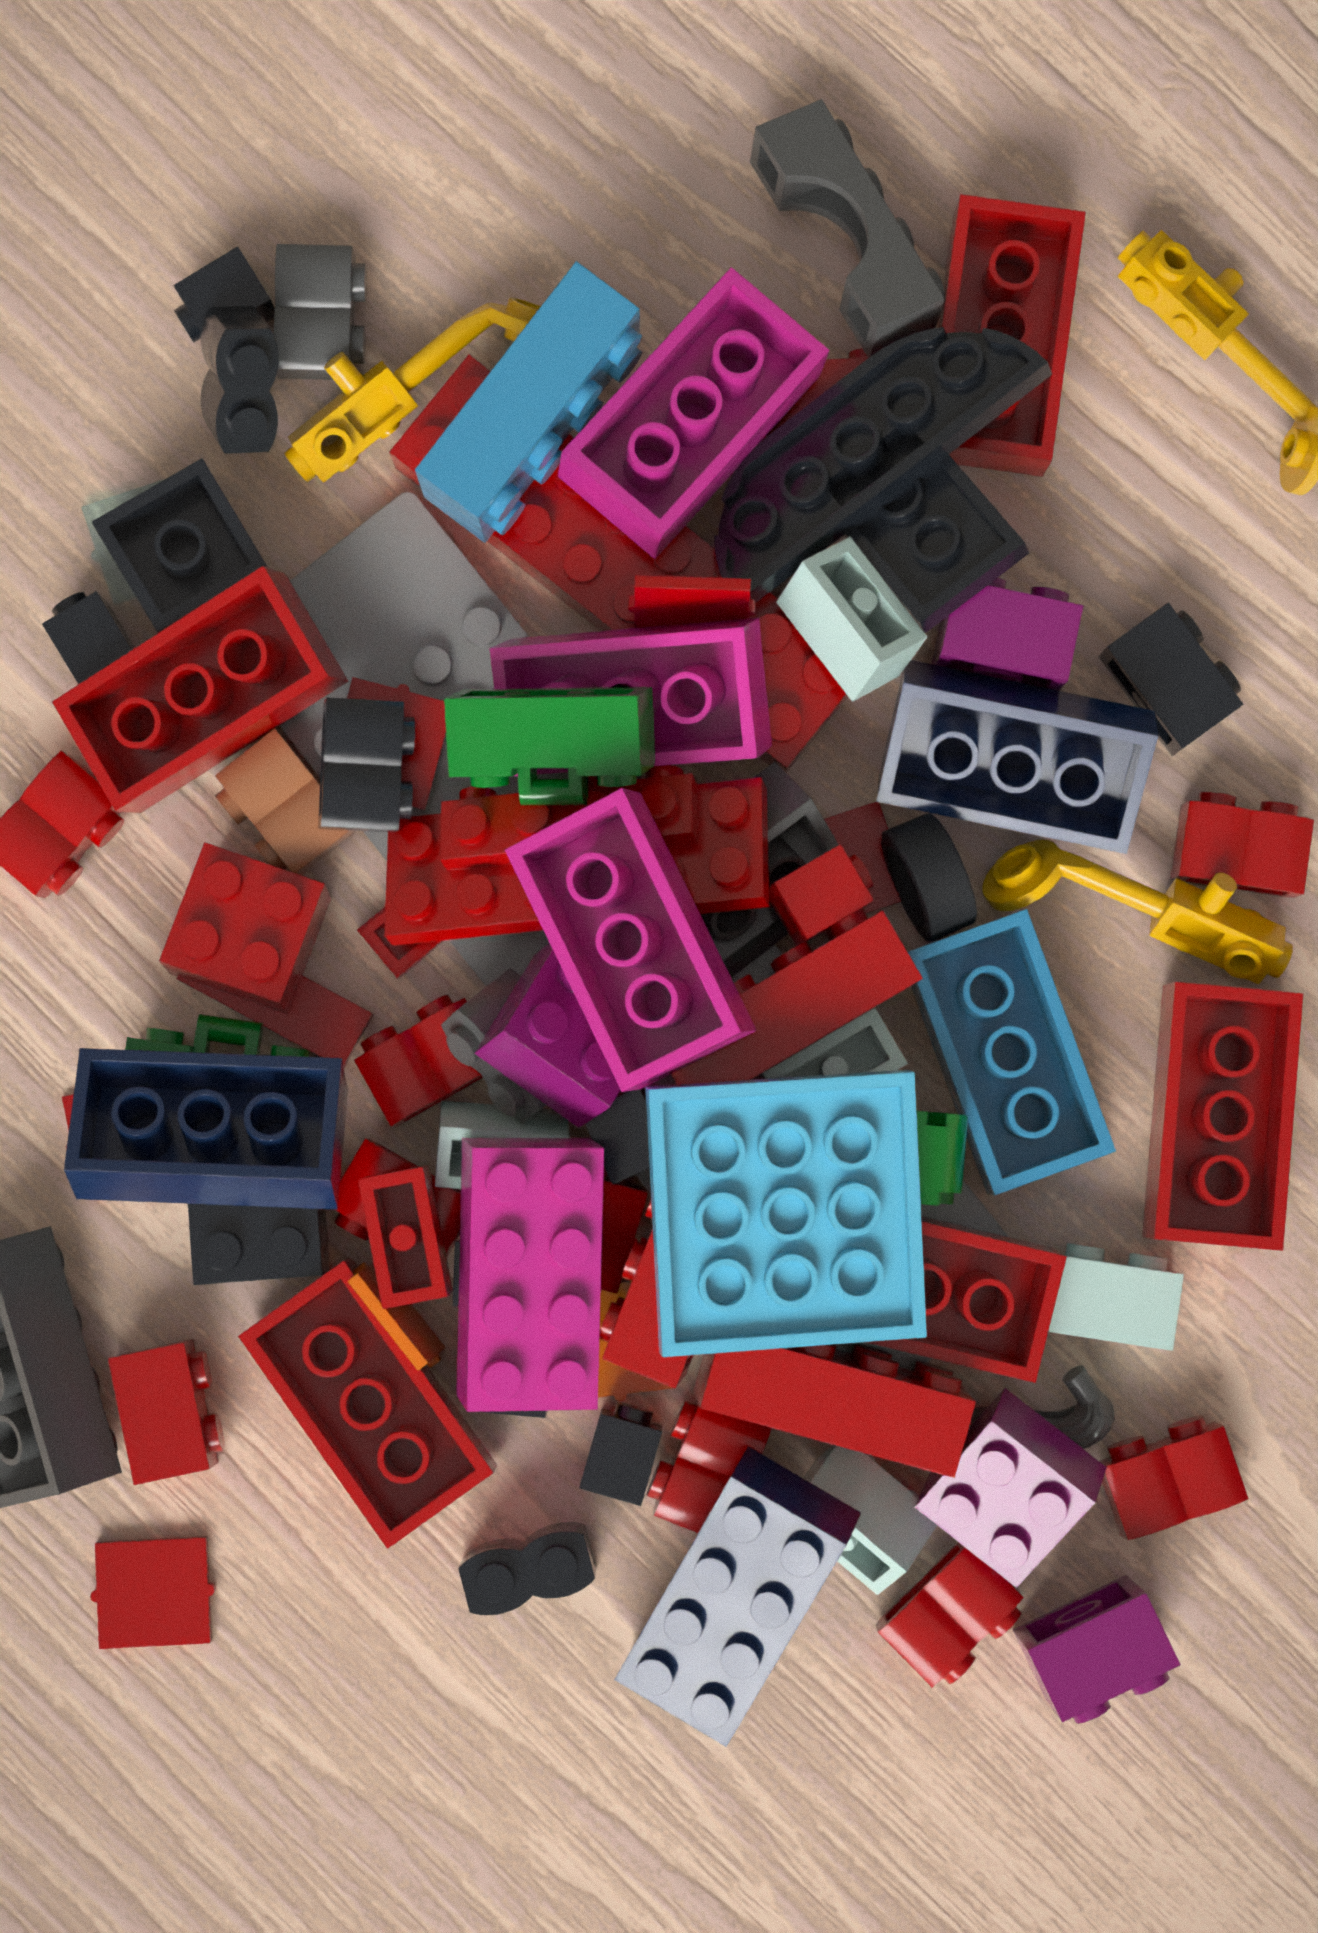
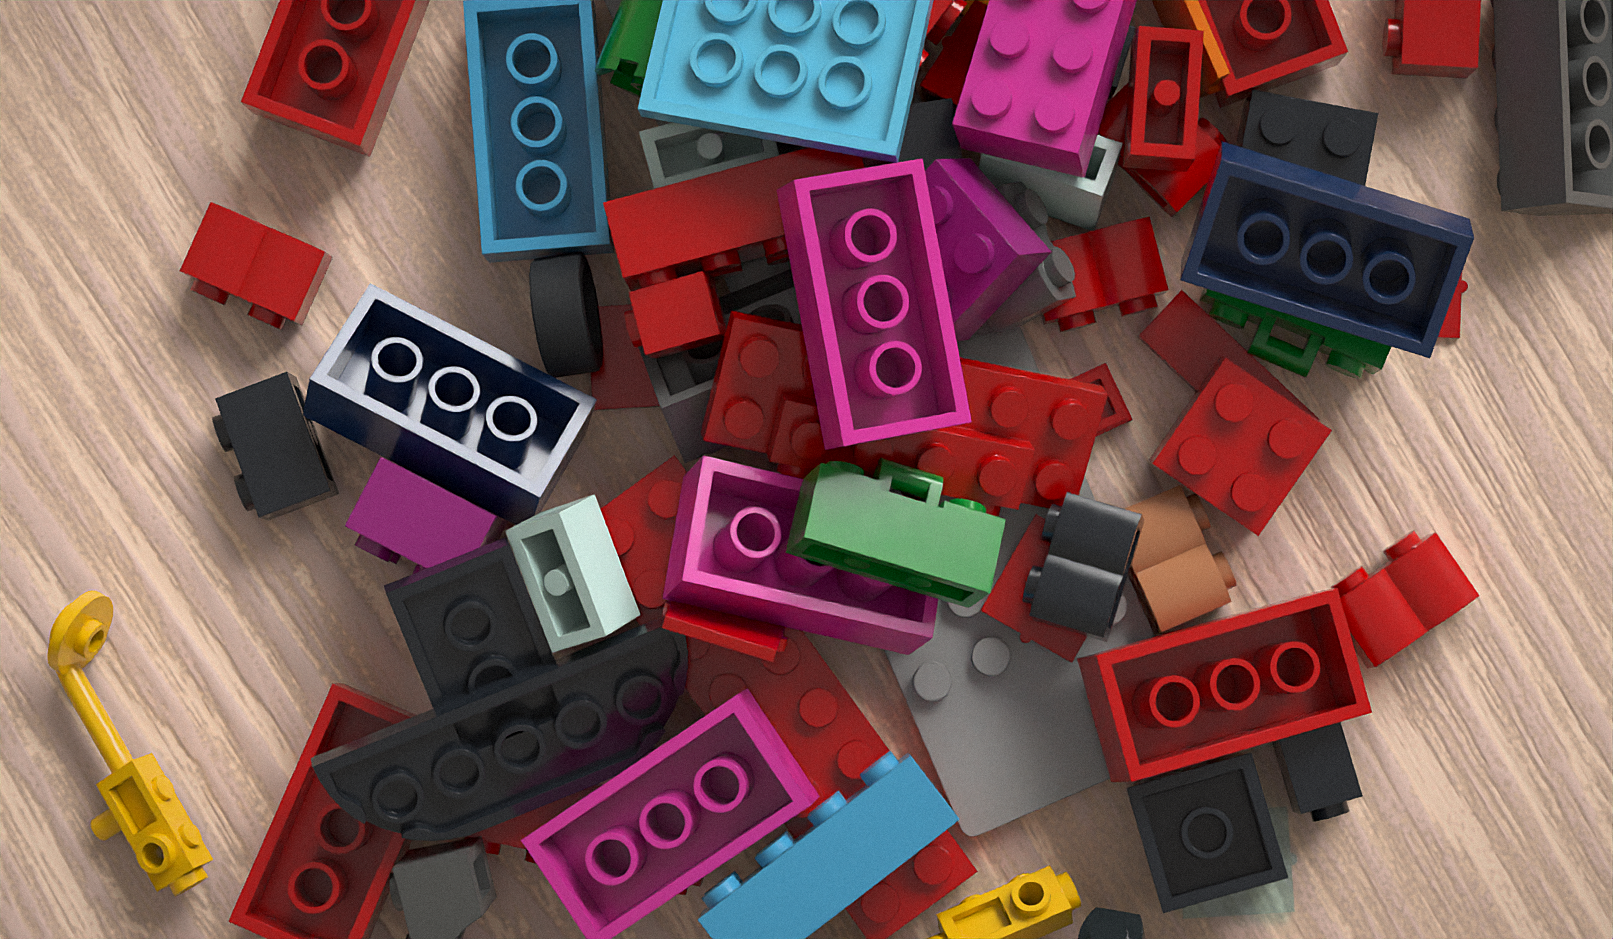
camera: 155 degrees left, 0 degrees up
(1182, 917) = (333, 212): yellow piece -> none

